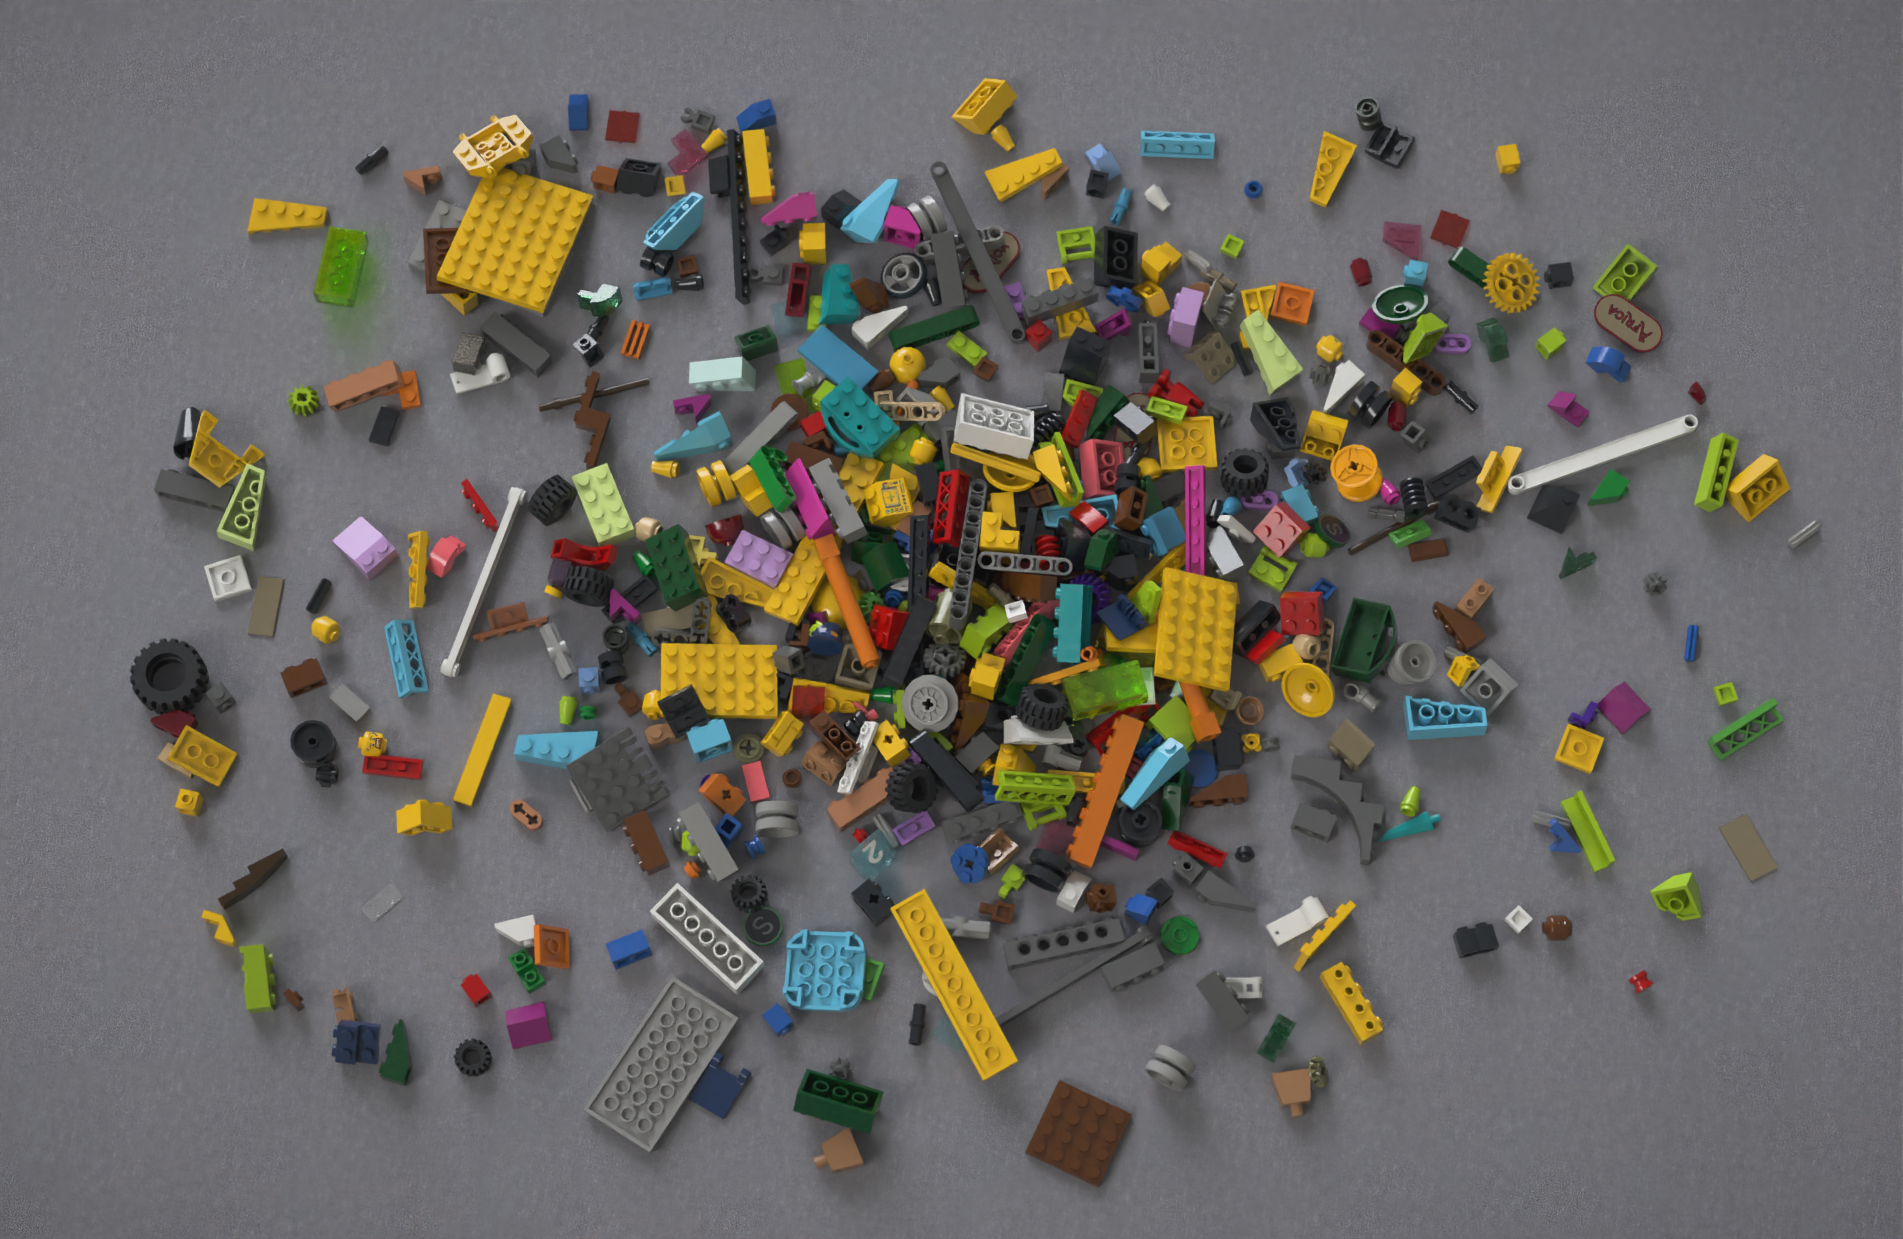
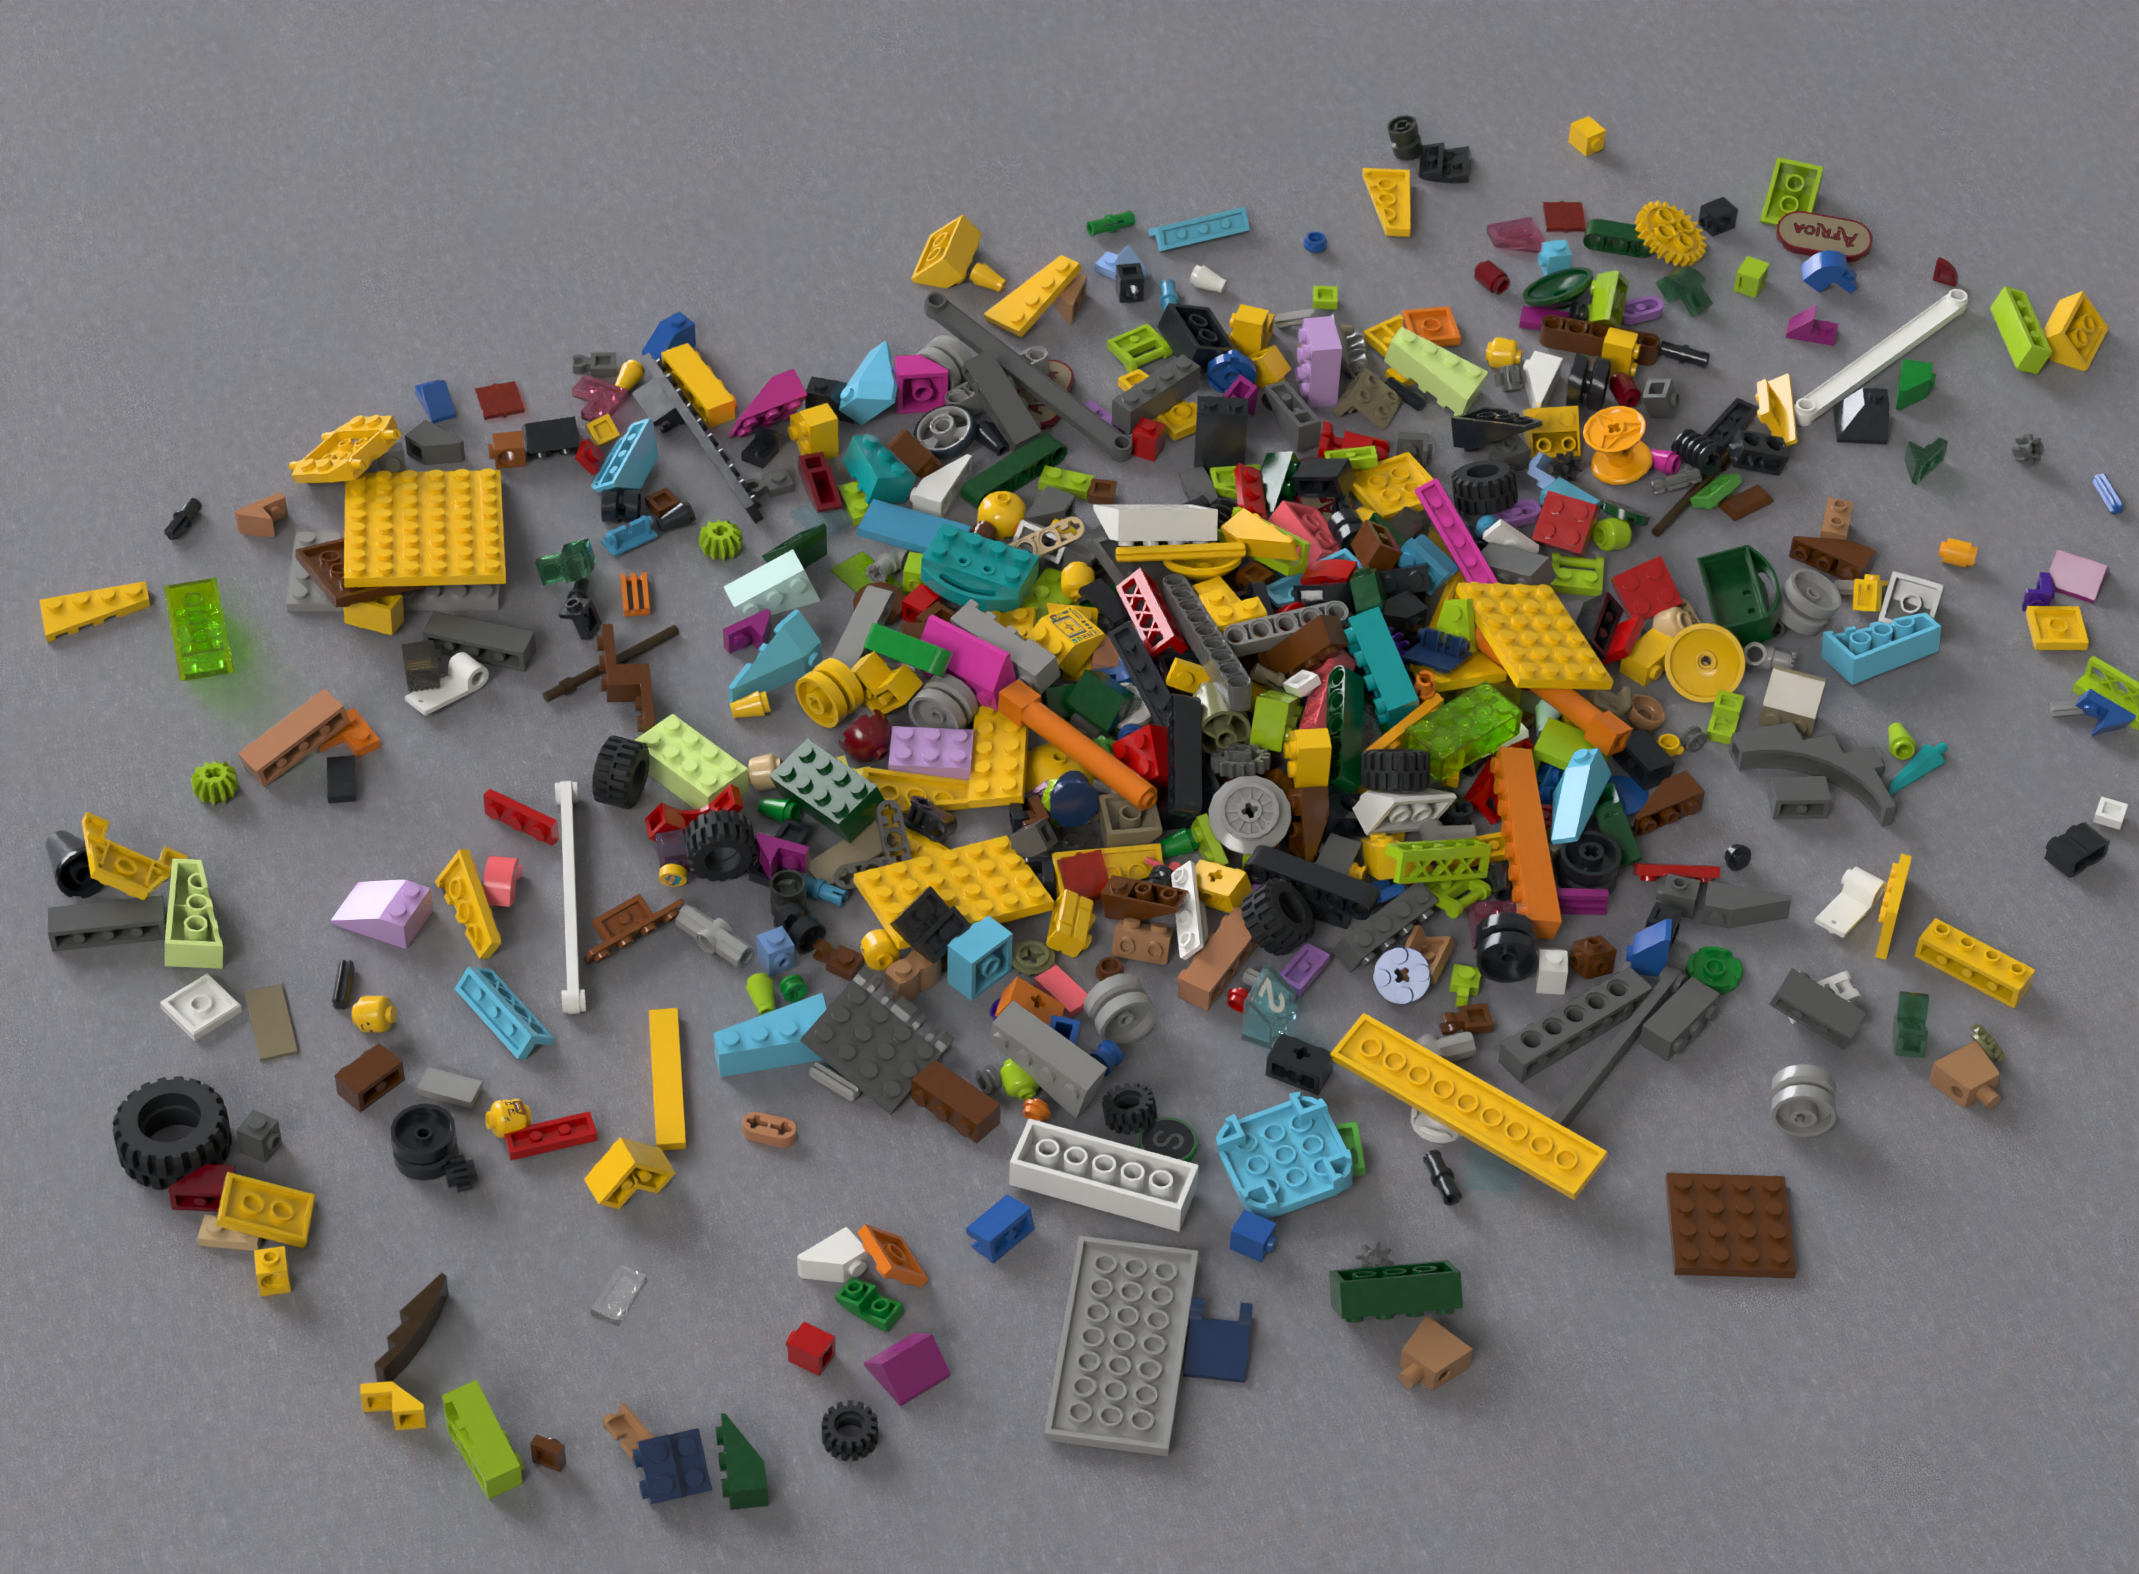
camera: 25 degrees left, 25 degrees down
(656, 206) = (590, 456): none -> red plate
(716, 317) = (720, 539): none -> lime gear
(1116, 116) = (1118, 221): none -> green pin
(1303, 733) = (1724, 716): none -> lime slope
(1548, 656) = (1957, 553): none -> light orange brick

